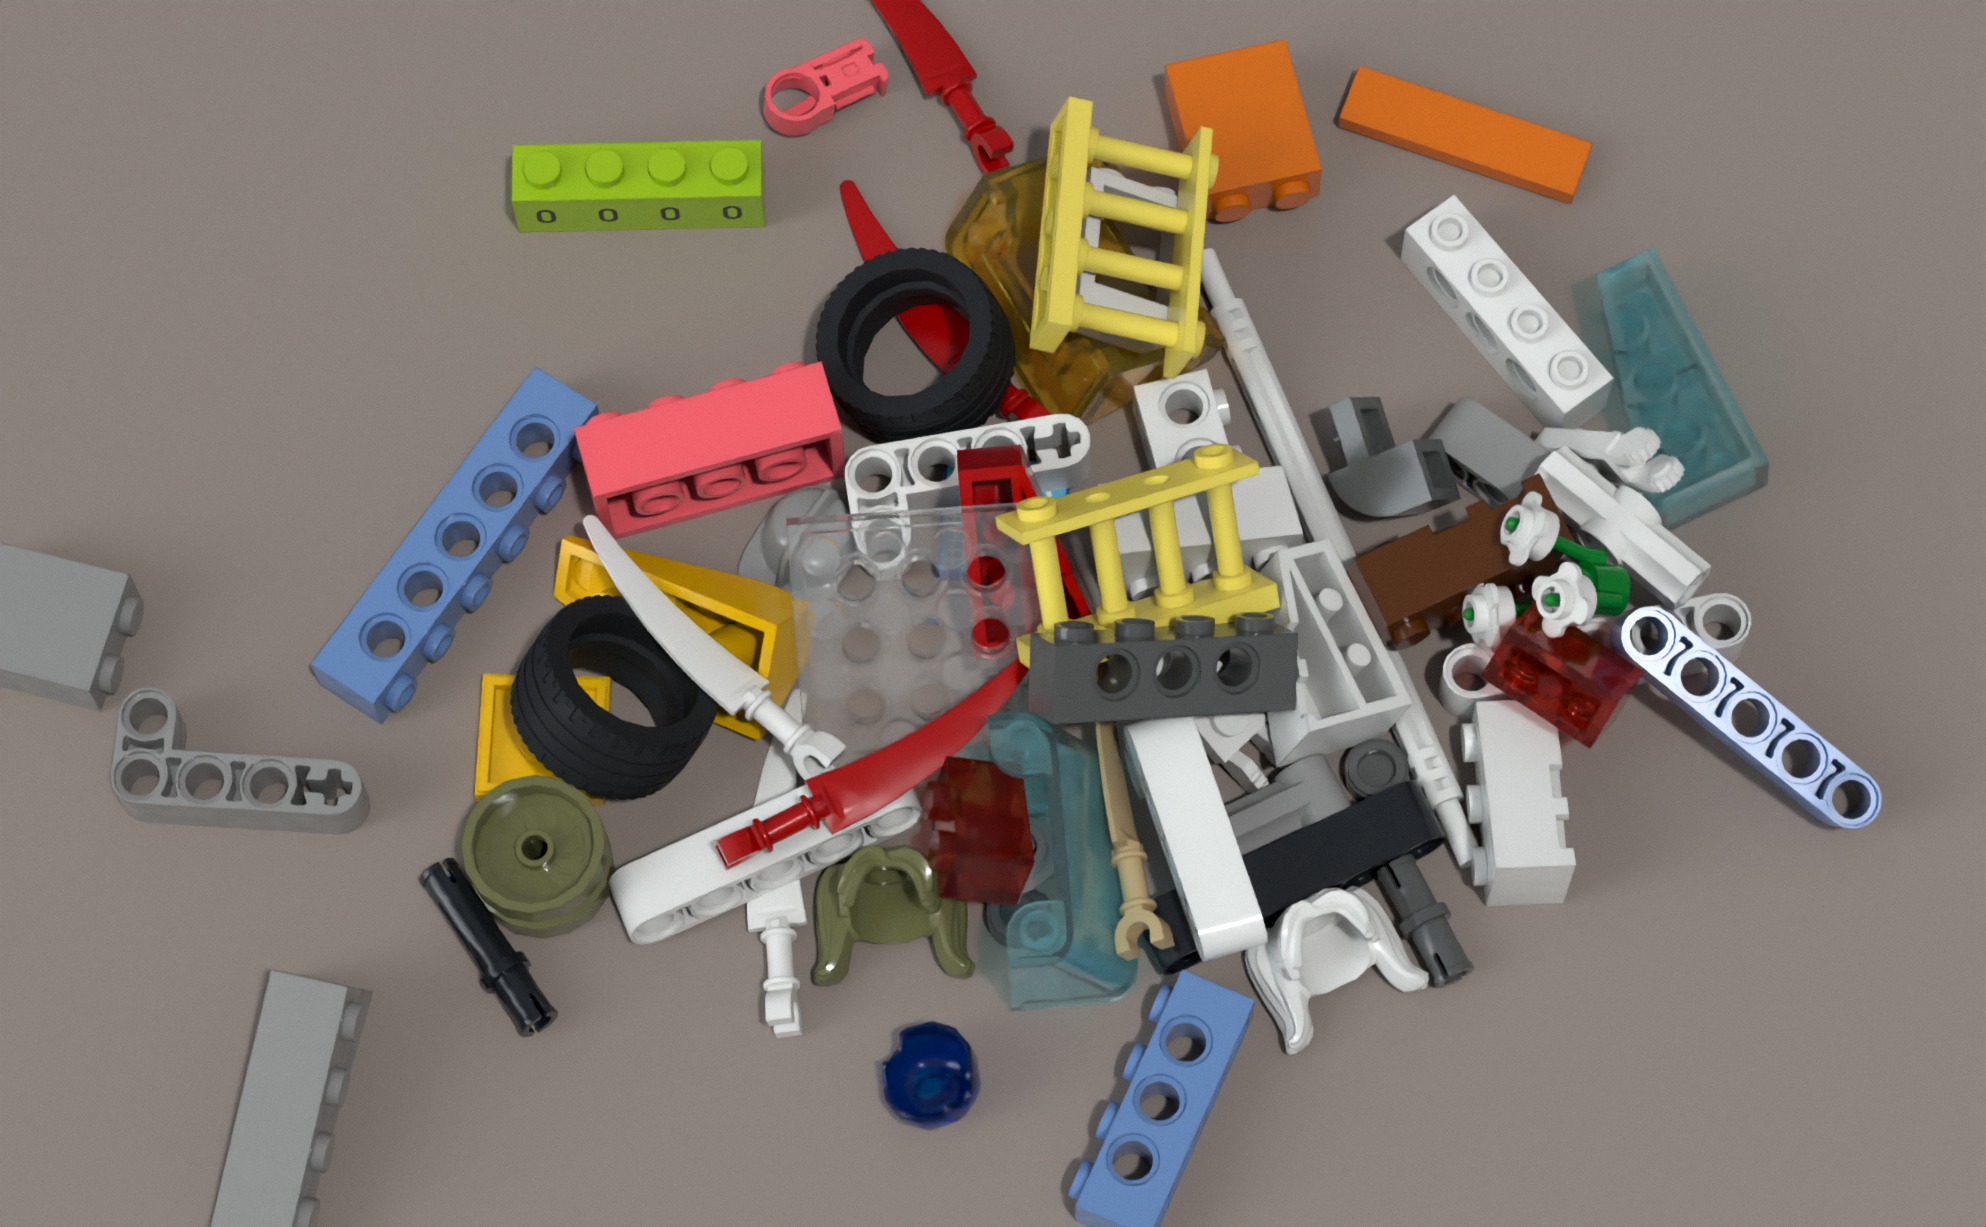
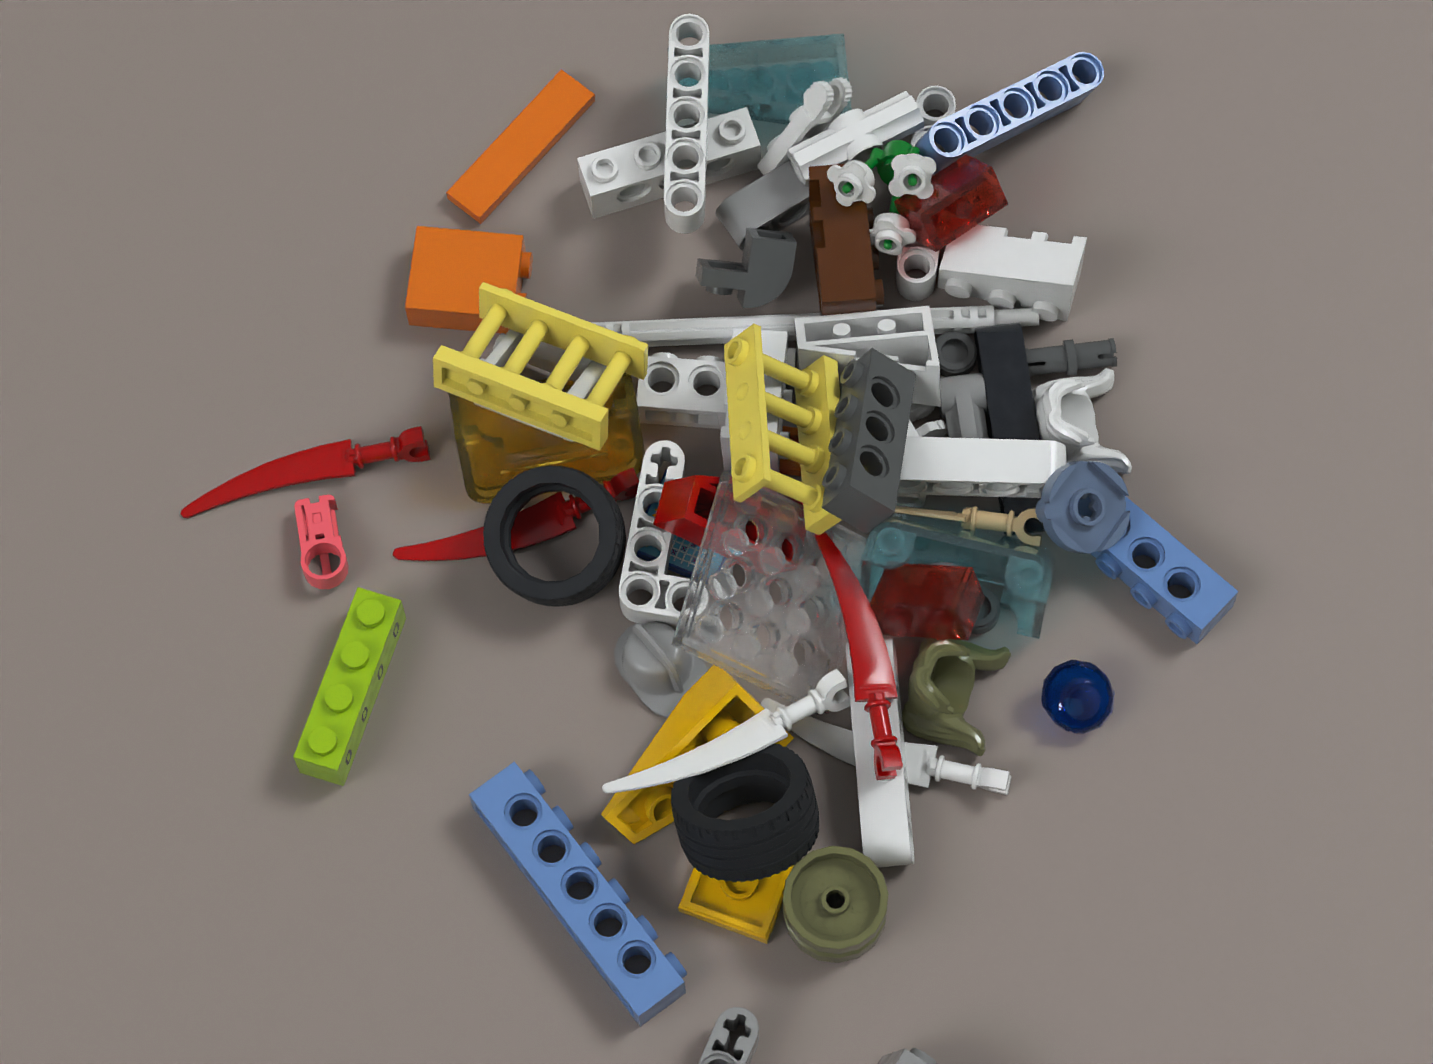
camera: 70 degrees left, 0 degrees up
(501, 967) = (881, 963): black pin -> none
(712, 449) = (579, 694): coral brick -> none
(1148, 1004) = (1060, 513): none -> sand blue plate
(1562, 279) = (686, 142): none -> white beam

